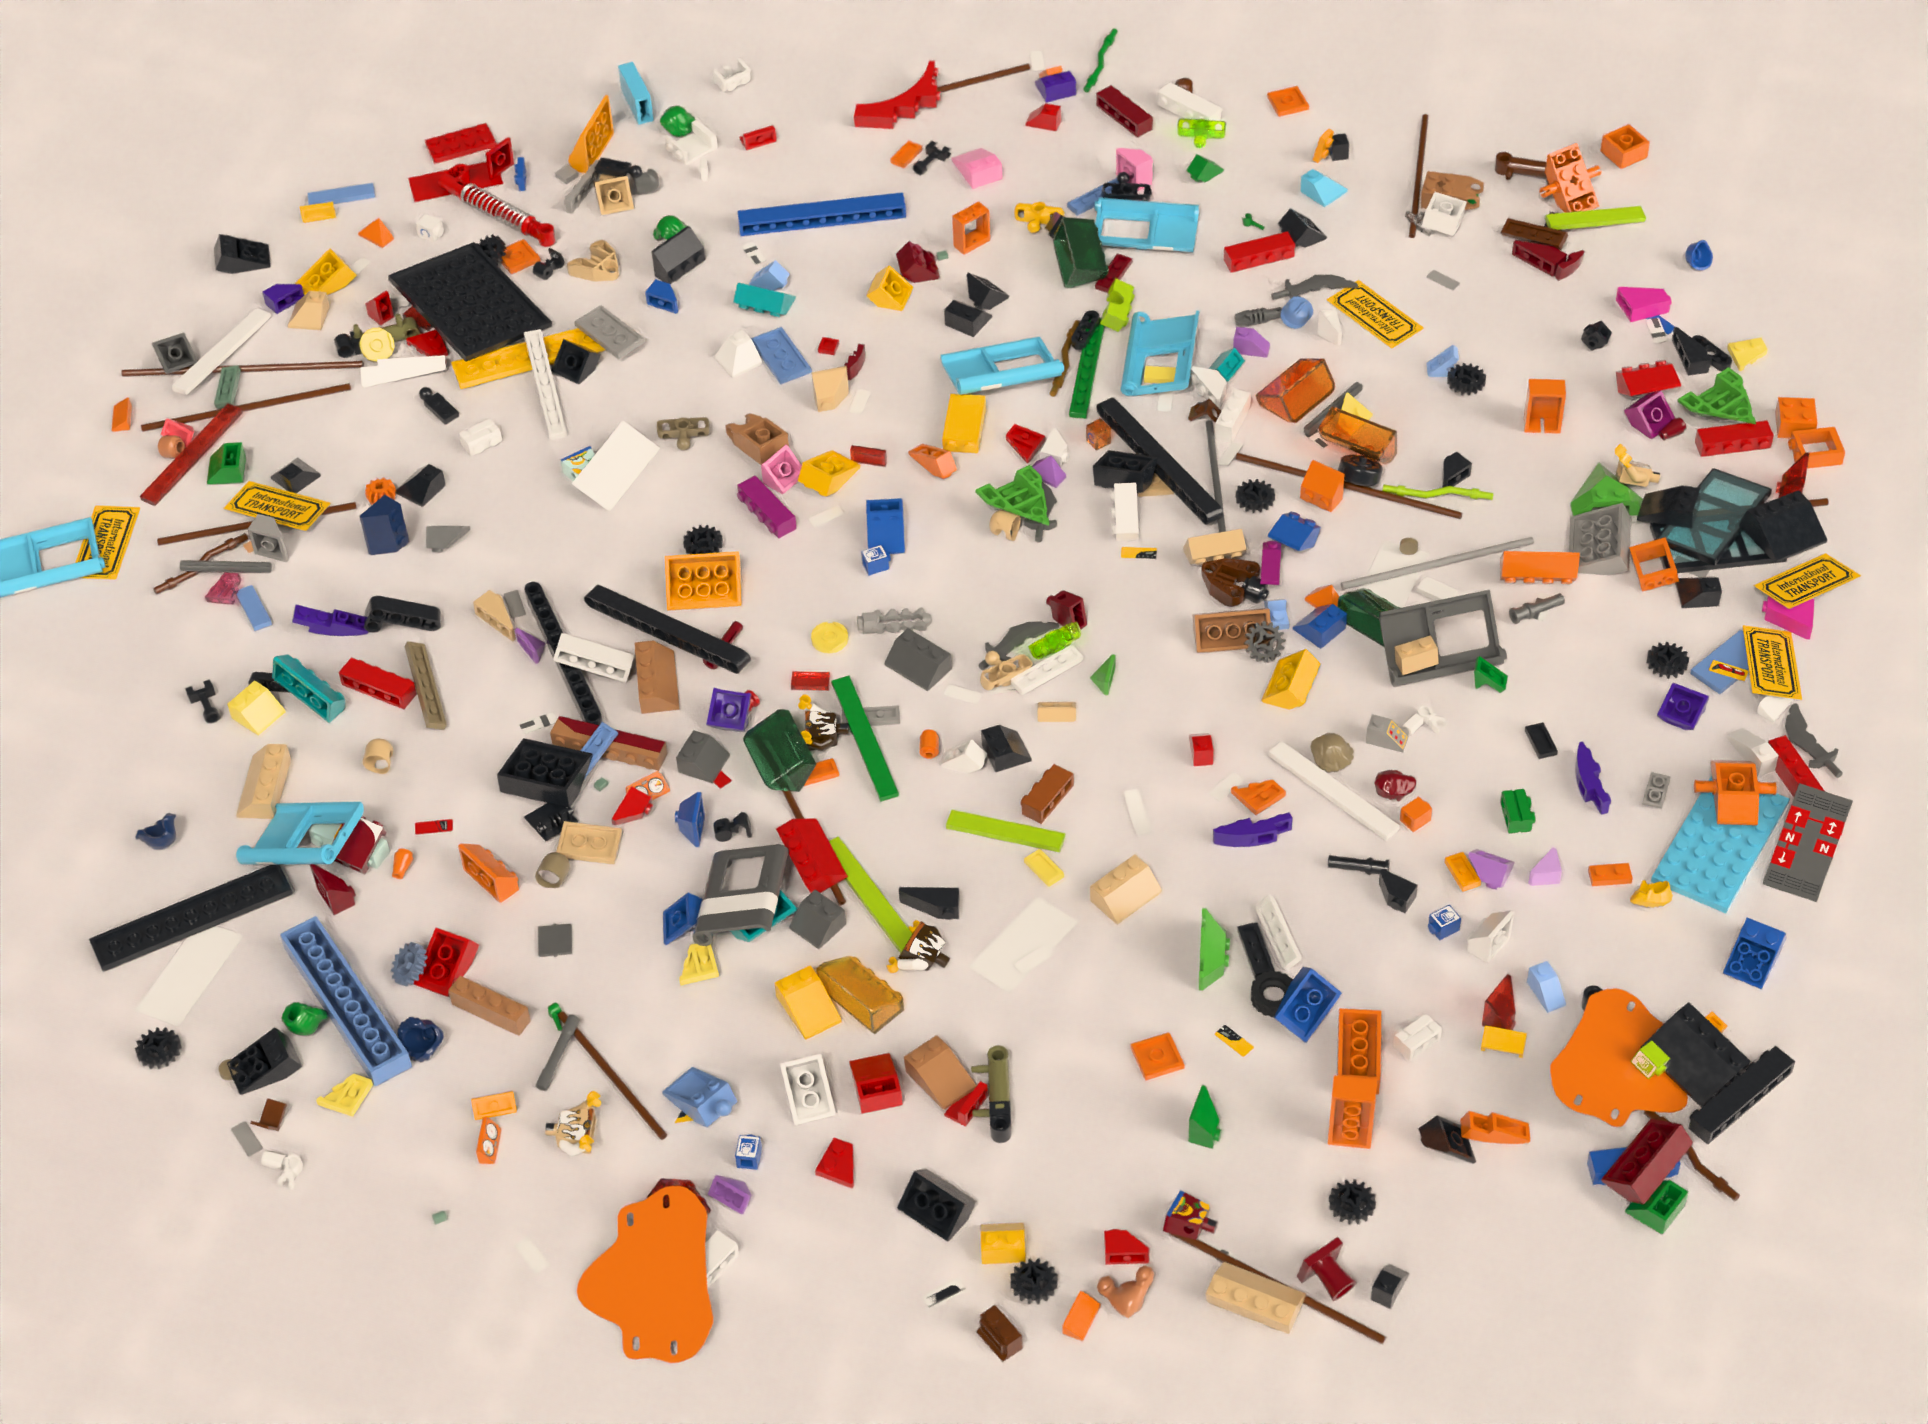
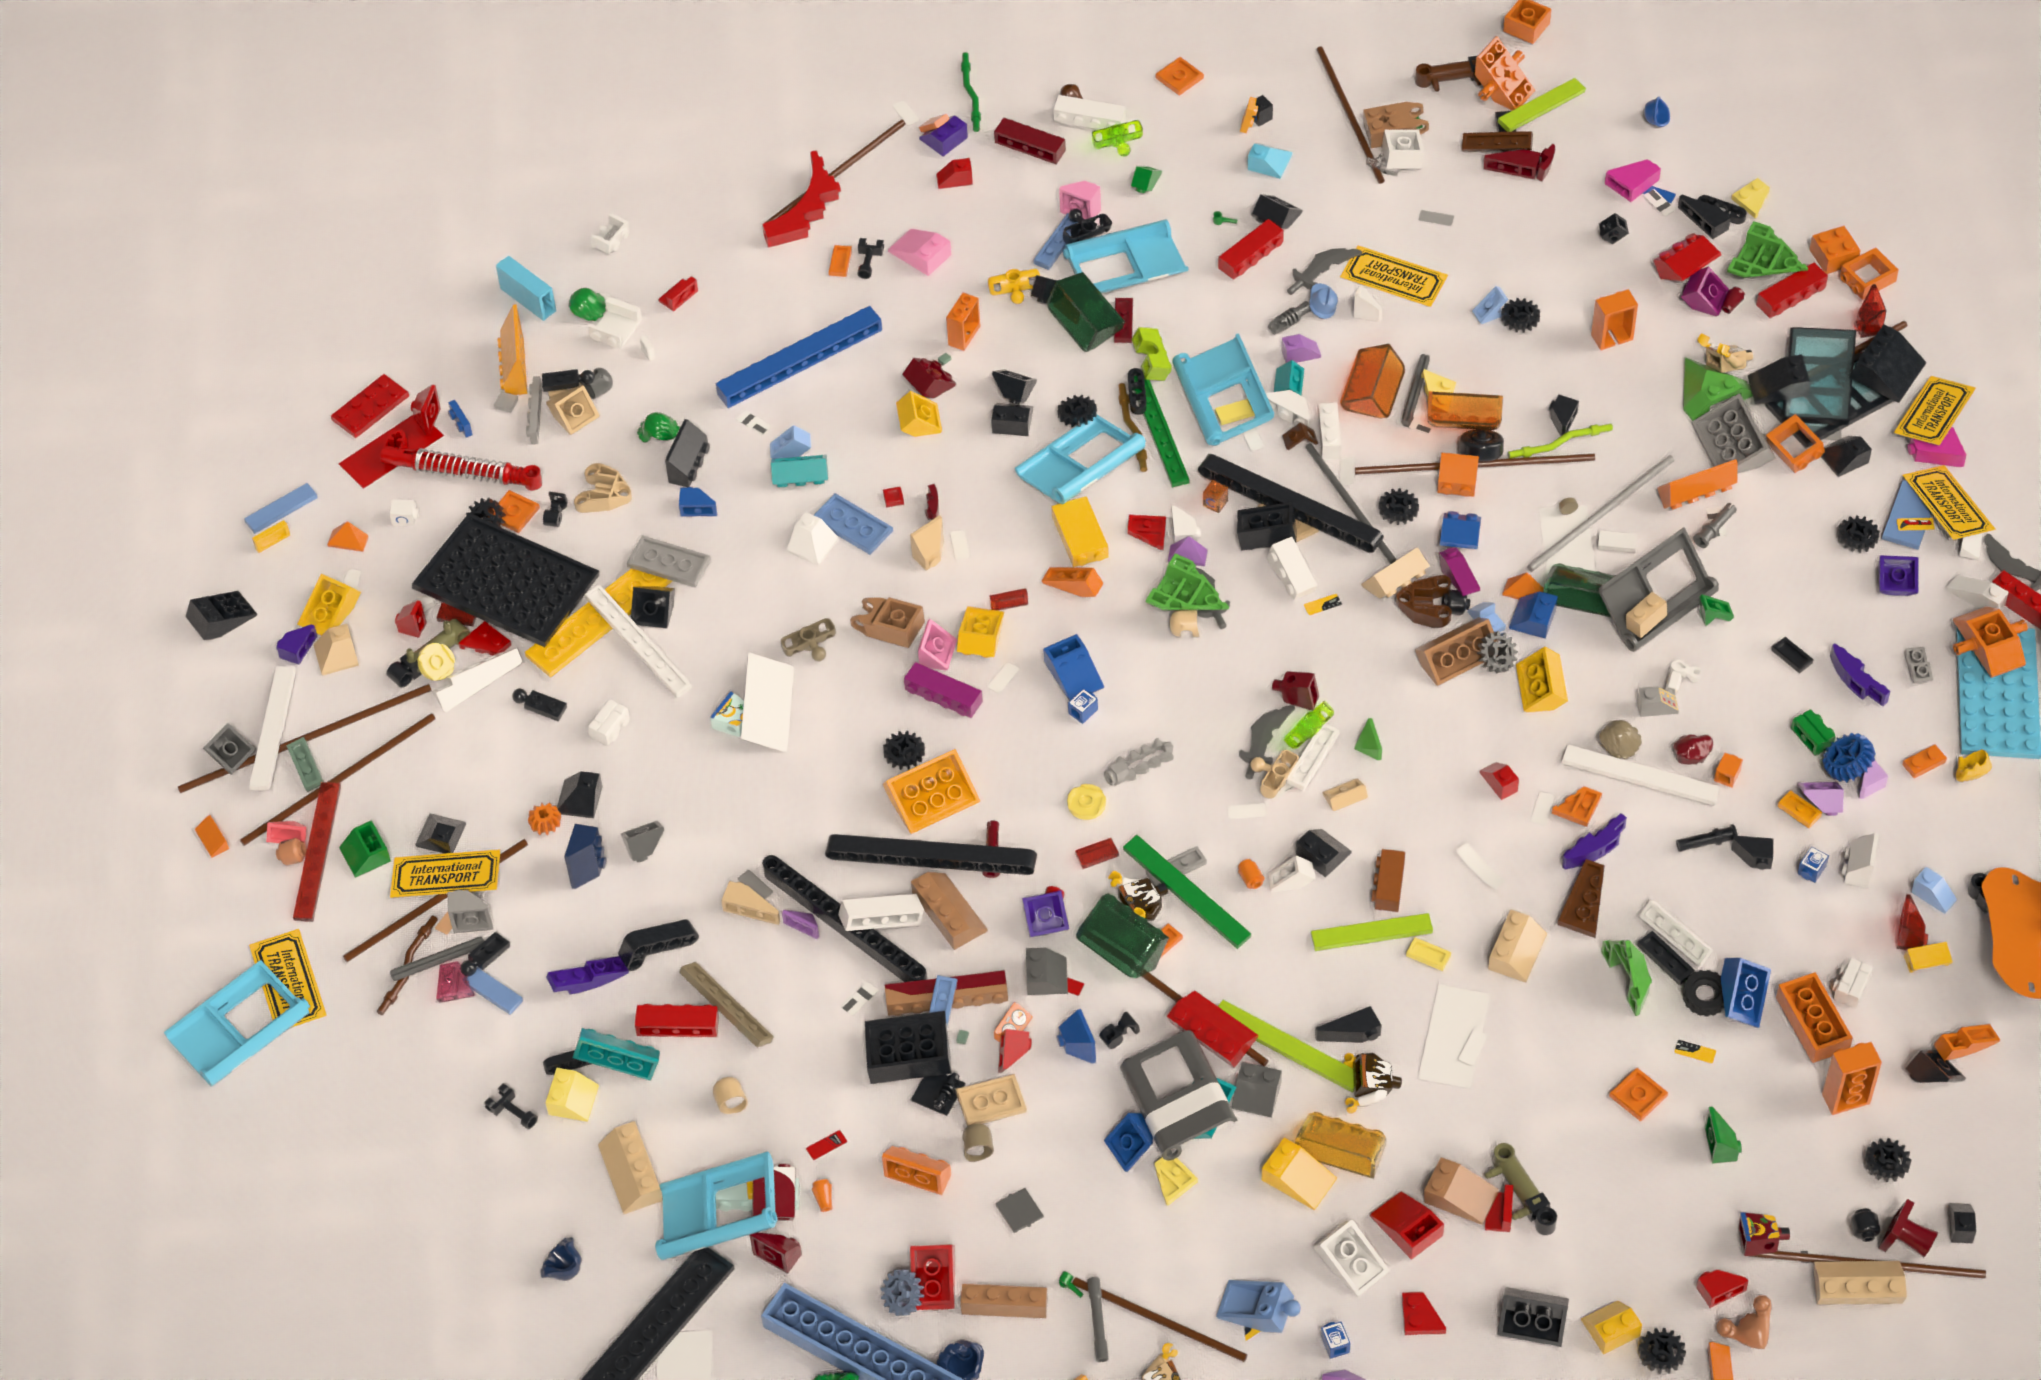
camera: 25 degrees left, 5 degrees up
(263, 576) = (485, 954): none -> black plate
(918, 659) = (1188, 792): dark grey slope -> none
(1024, 329) = (1077, 410): none -> black gear
(1209, 877) = (1584, 900): none -> reddish brown wing
(1293, 1249) = (1865, 1224): none -> black head
(1534, 842) = (1849, 757): none -> blue gear

